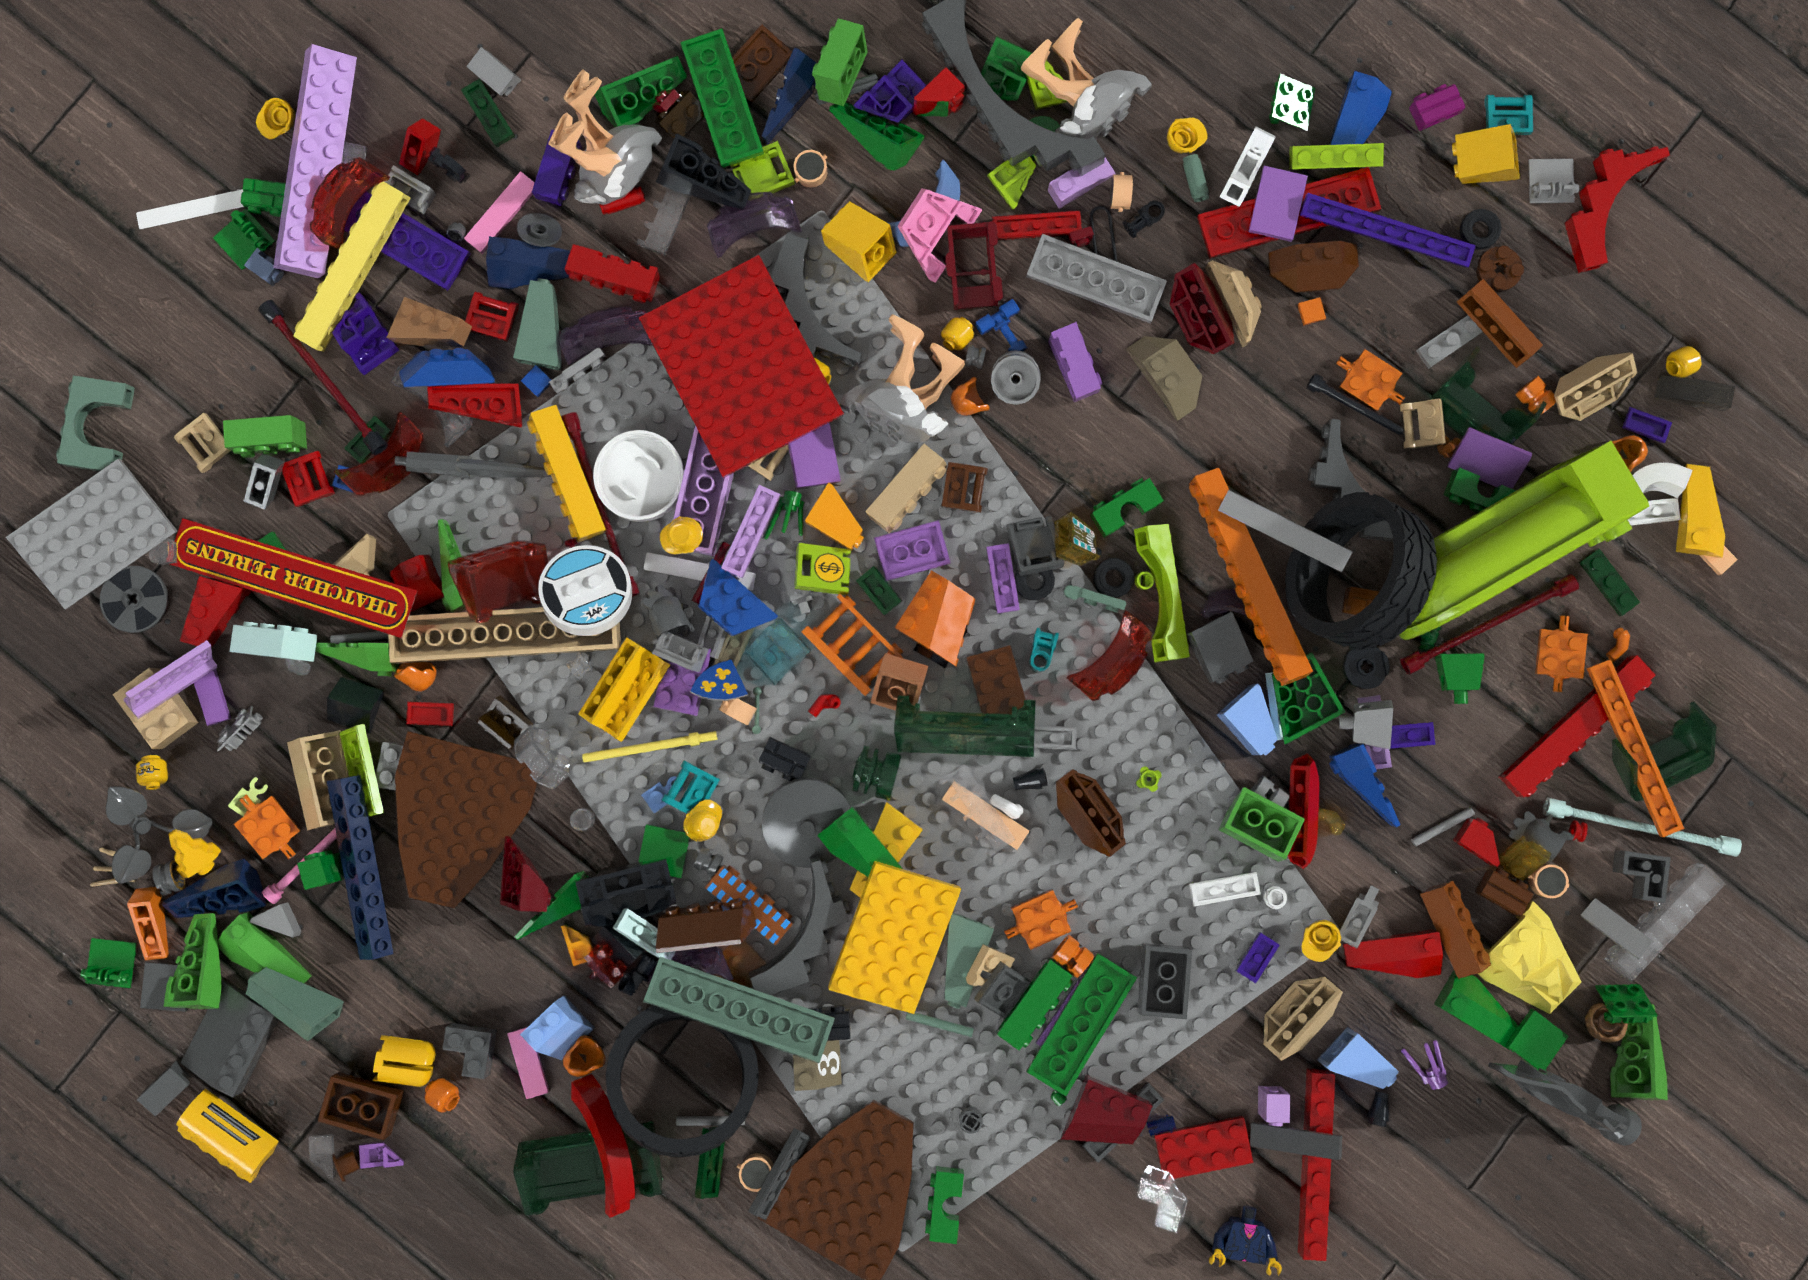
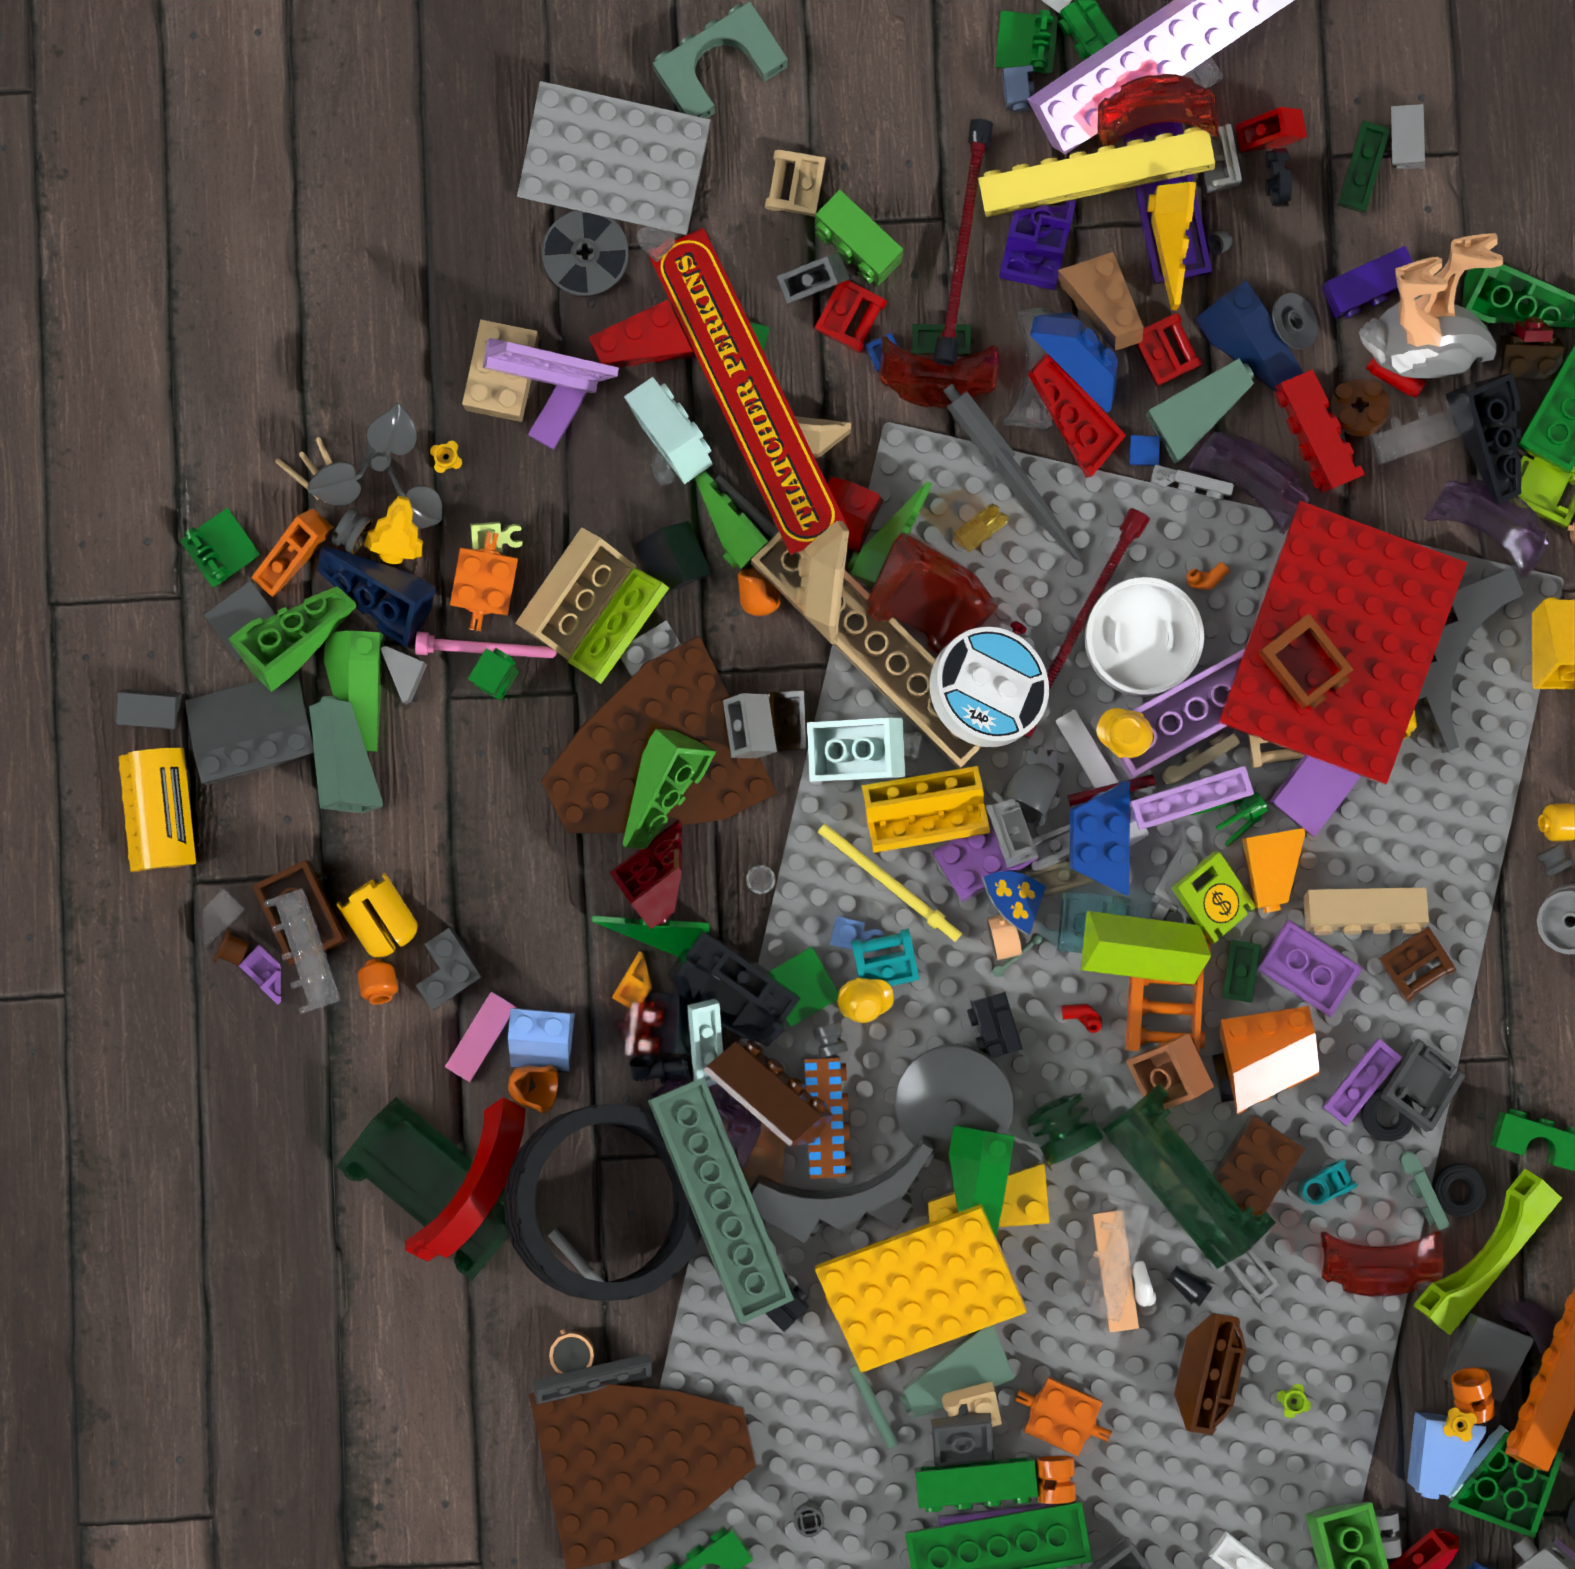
camera: 45 degrees right, 0 degrees up
(151, 772) = (437, 422): yellow head -> none
(171, 787) = (439, 452): none -> yellow plate
(232, 736) = (539, 464): light grey hinge -> none
(360, 867) = (526, 707): dark blue brick -> none
(382, 1123) = (305, 949): none -> clear hinge
(417, 249) = (1171, 217): none -> yellow wedge
(430, 713) = (729, 638): red tile -> none
(433, 632) = (823, 579): none -> tan wedge
(470, 824) = (664, 774): none -> bright green wedge
(485, 748) = (749, 725): none -> light grey brick
(494, 513) = (980, 527): none -> clear yellow hinge
(500, 212) = (1277, 267): bright pink tile -> none
(546, 765) = (785, 800): clear brick -> none
(553, 699) = (856, 749): none -> light aqua brick
(566, 473) = (1082, 563): yellow brick -> none
(613, 228) = (1363, 392): none -> reddish brown plate
(640, 411) = (1207, 580): none -> orange arm
(707, 397) = (1317, 696): none -> dark orange window
(709, 1171) = (532, 1307): dark green plate -> none
(736, 507) = (1198, 758): none -> dark tan plate
(813, 635) = (1143, 948): none -> lime slope
(815, 1076) = (719, 1327): dark tan slope -> none
(891, 403) = (1439, 823): animal -> none
(967, 400) = (1504, 890): orange hair -> none
(1075, 540) = (1463, 1120): clear yellow torso -> none
(1148, 580) = (1486, 1226): lime hinge -> none
(1234, 675) = (1473, 1393): none -> orange wheel
(1236, 697) = (1452, 1420): none -> yellow plate

